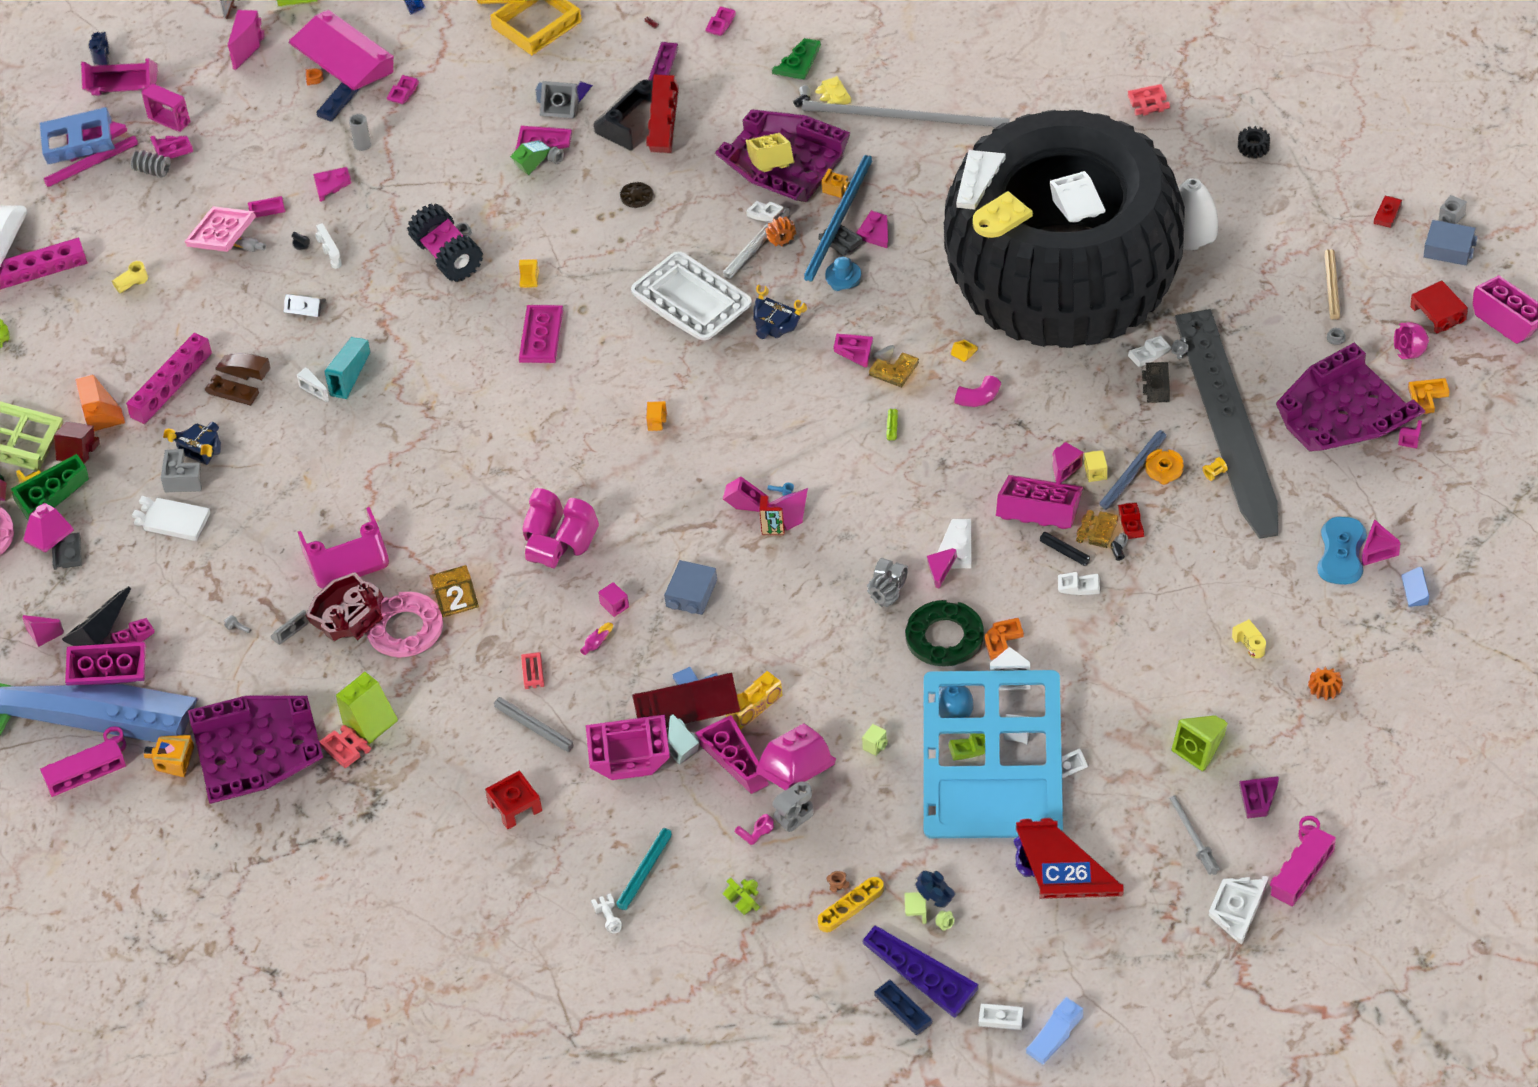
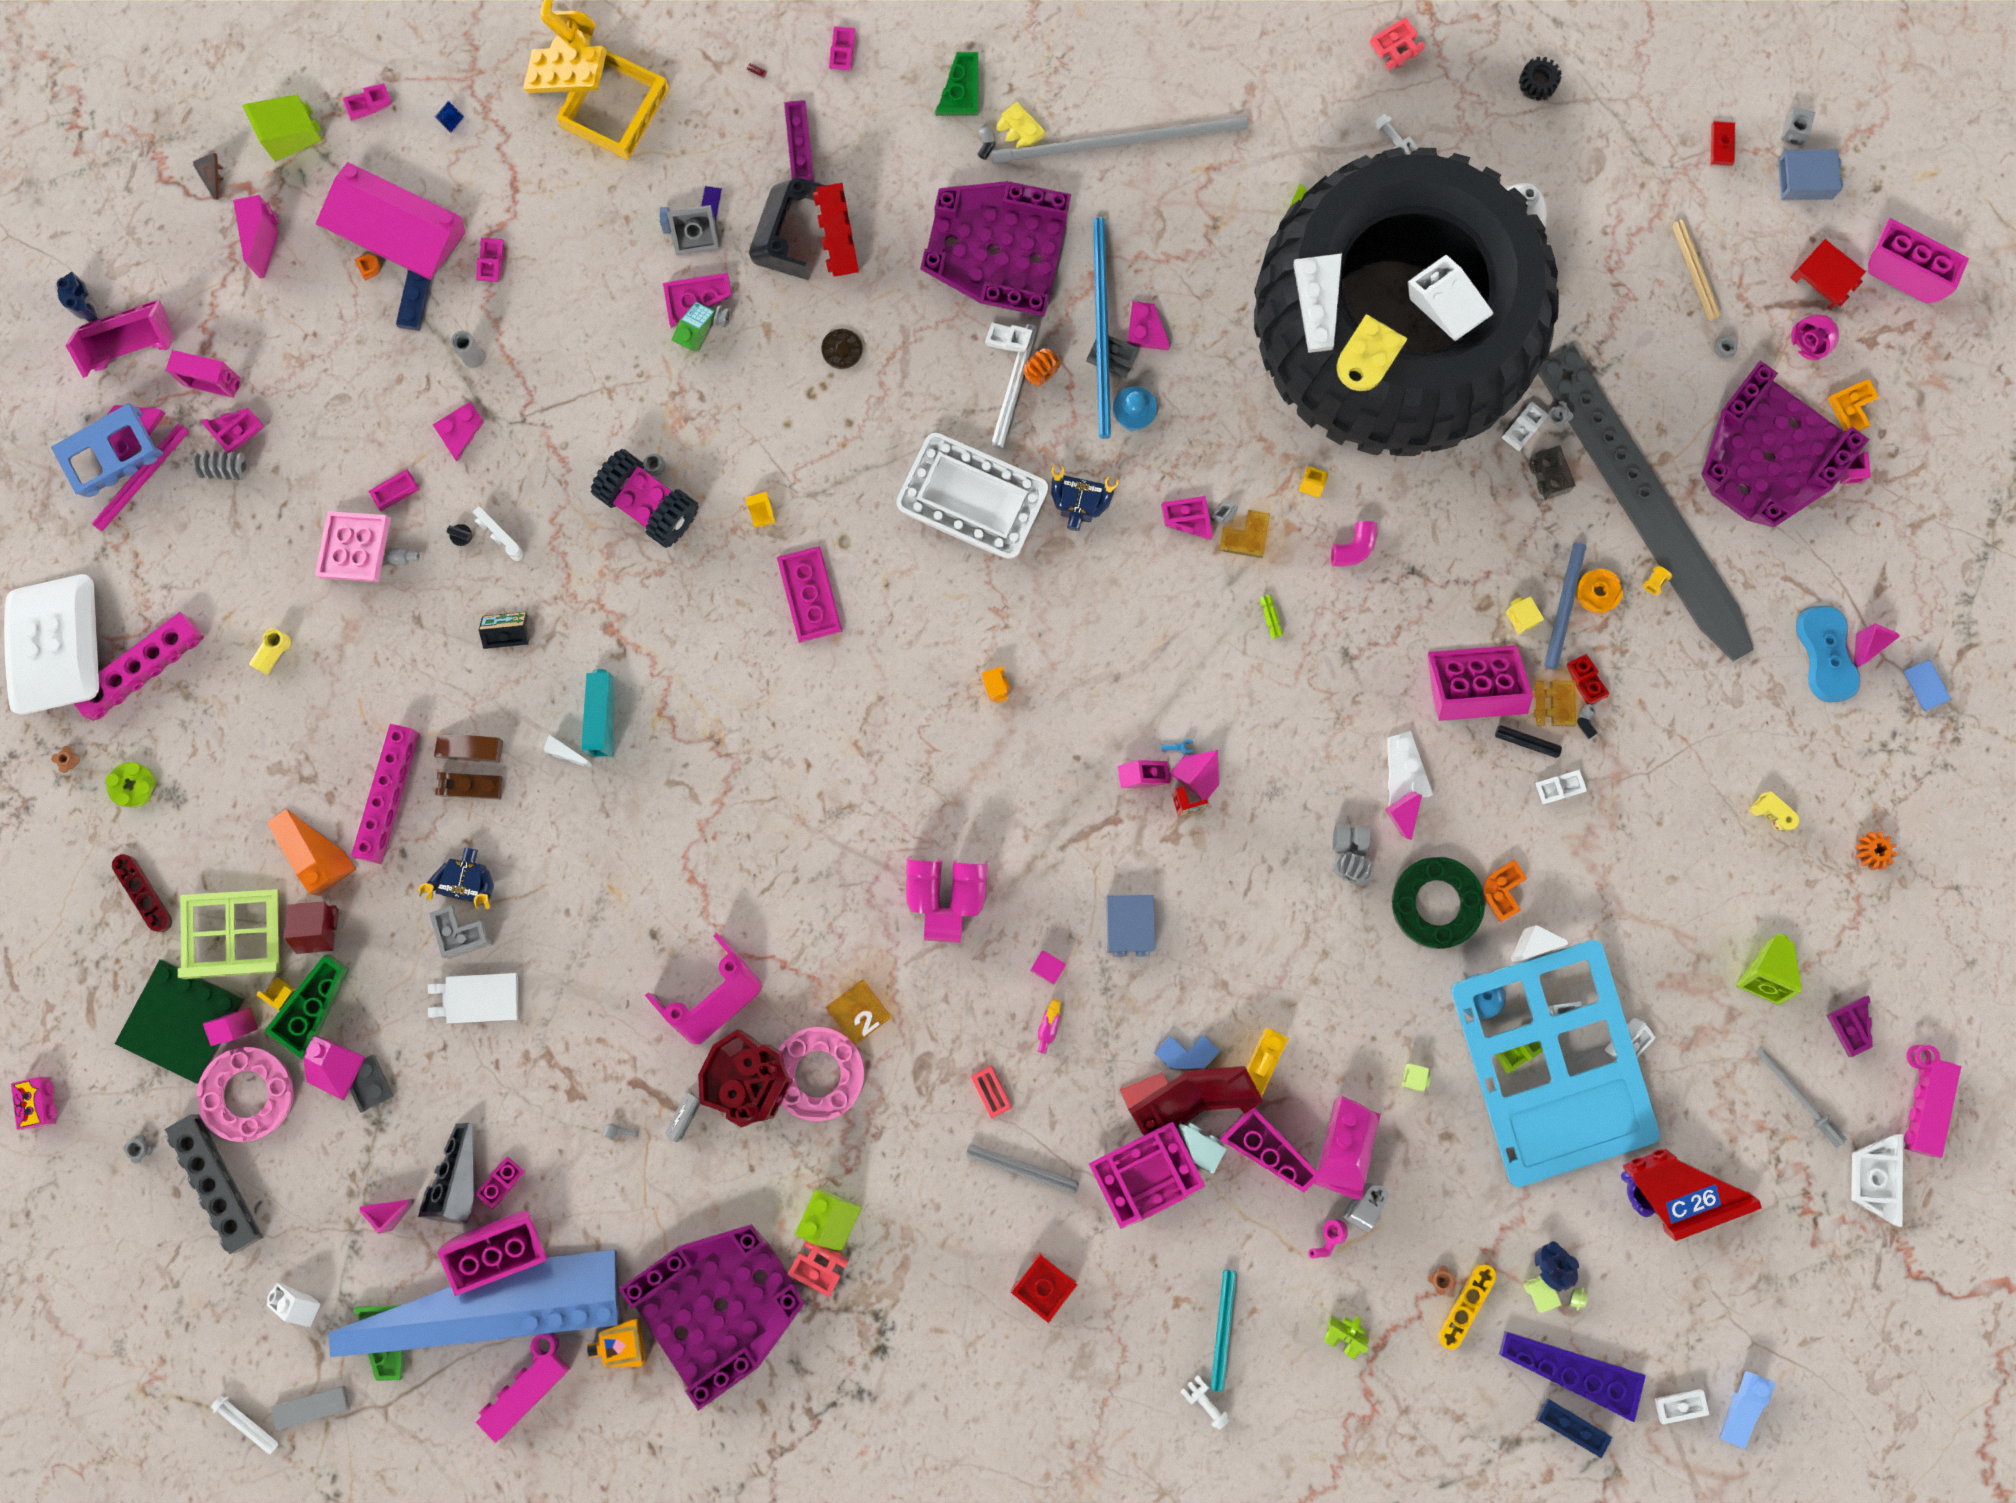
camera: 25 degrees left, 30 degrees up
(770, 152) = (989, 253): light yellow brick -> none
(834, 184) = (1074, 278): light orange brick -> none
(1066, 461) = (1489, 620): dark pink slope -> none

